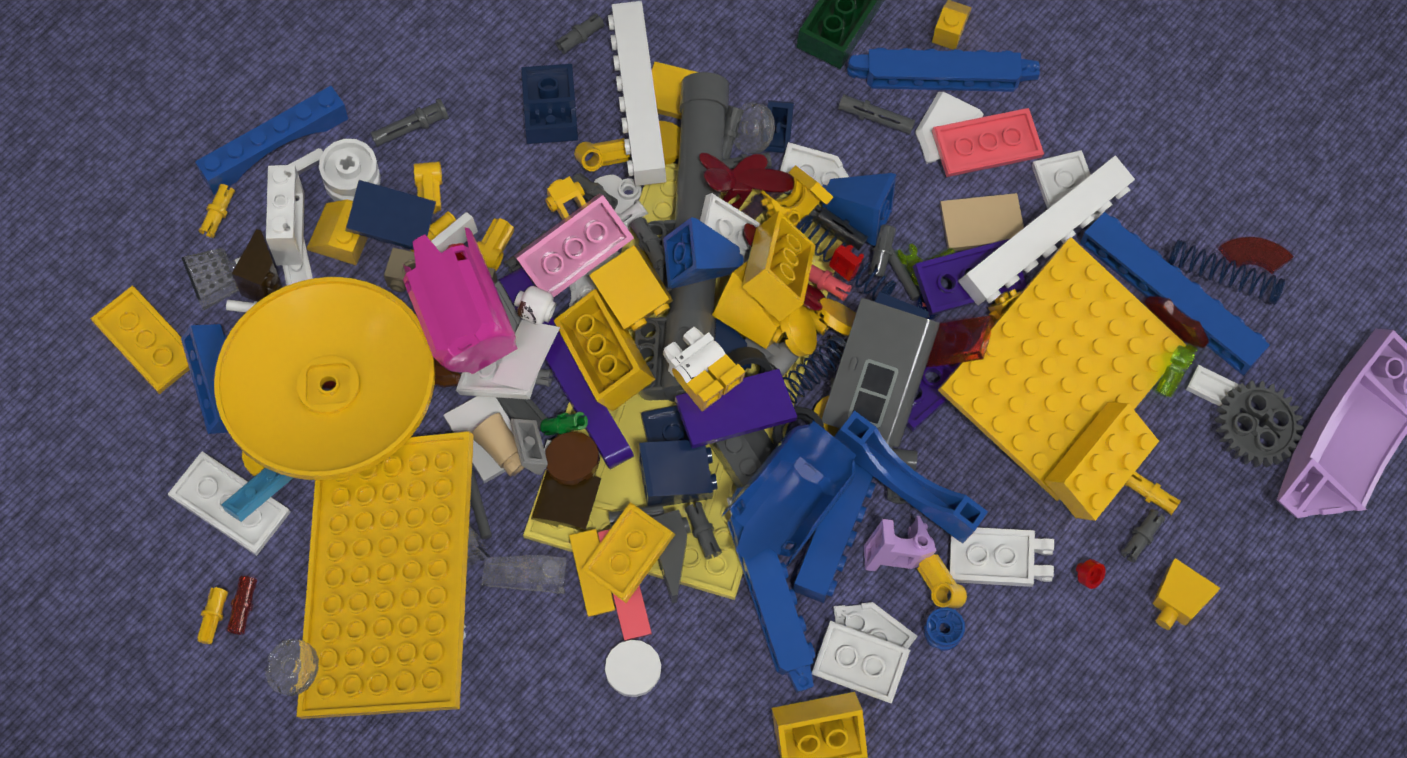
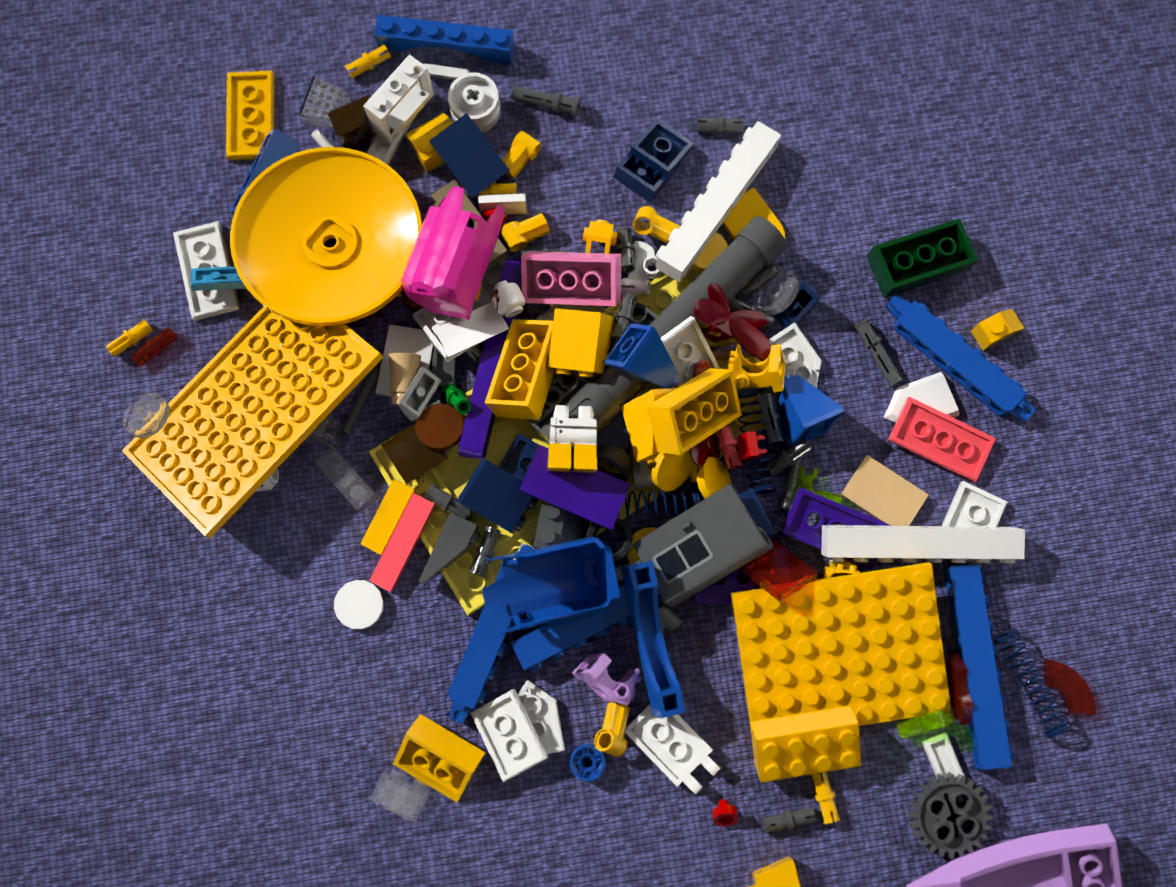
camera: 45 degrees right, 10 degrees up
(628, 552) = (417, 525): yellow tile -> none

